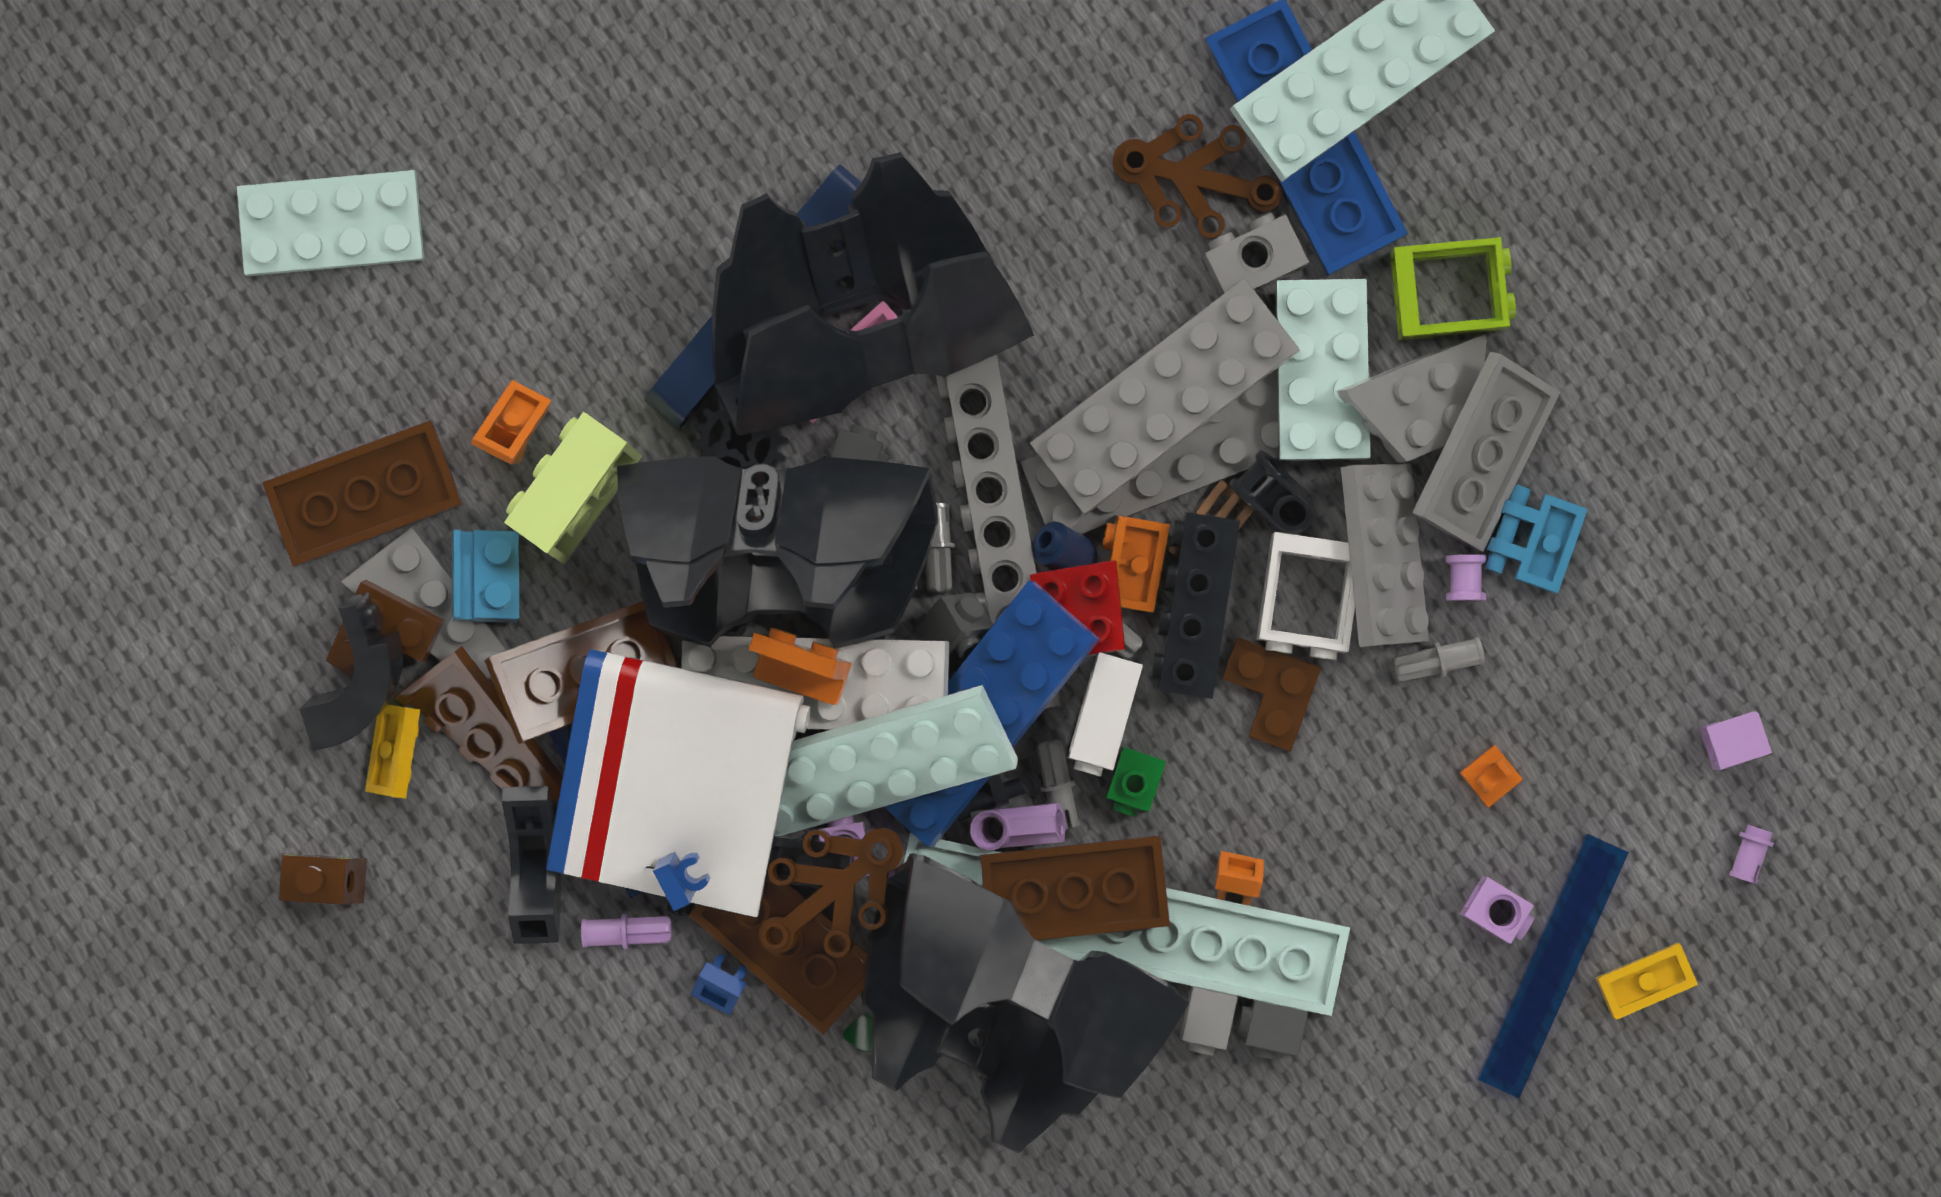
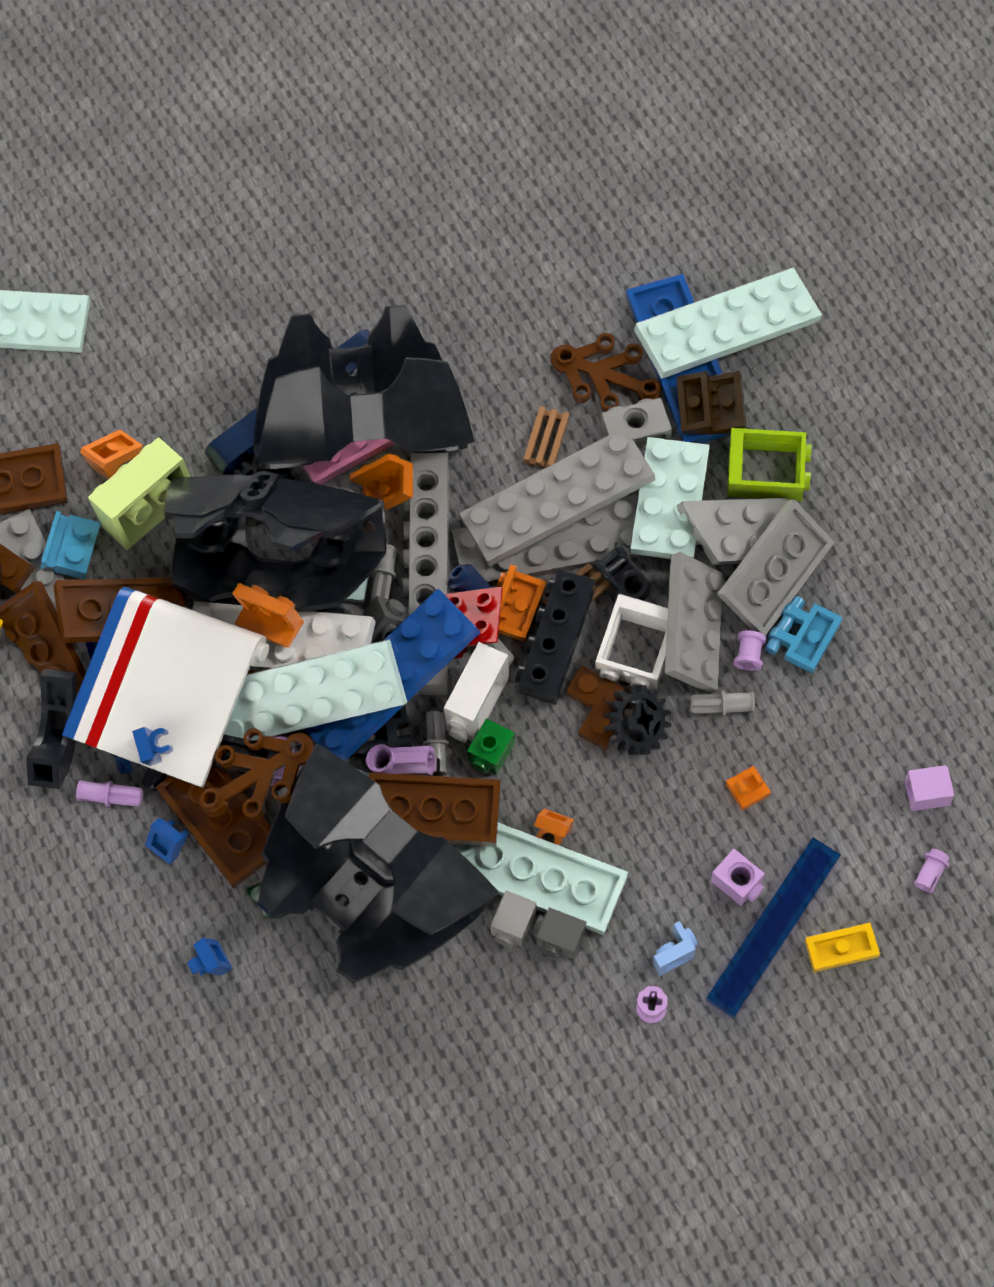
camera: 20 degrees right, 20 degrees down
(815, 1140) = (209, 959): none -> blue tile
(917, 416) = (386, 480): none -> orange bracket
(1132, 254) = (552, 415): none -> medium nougat tile
(1328, 711) = (644, 734): none -> black gear
(1358, 209) = (711, 403): none -> dark brown slope
(1399, 1093) = (642, 1004): none -> lavender bush
(1424, 1031) = (671, 955): none -> light blue bracket

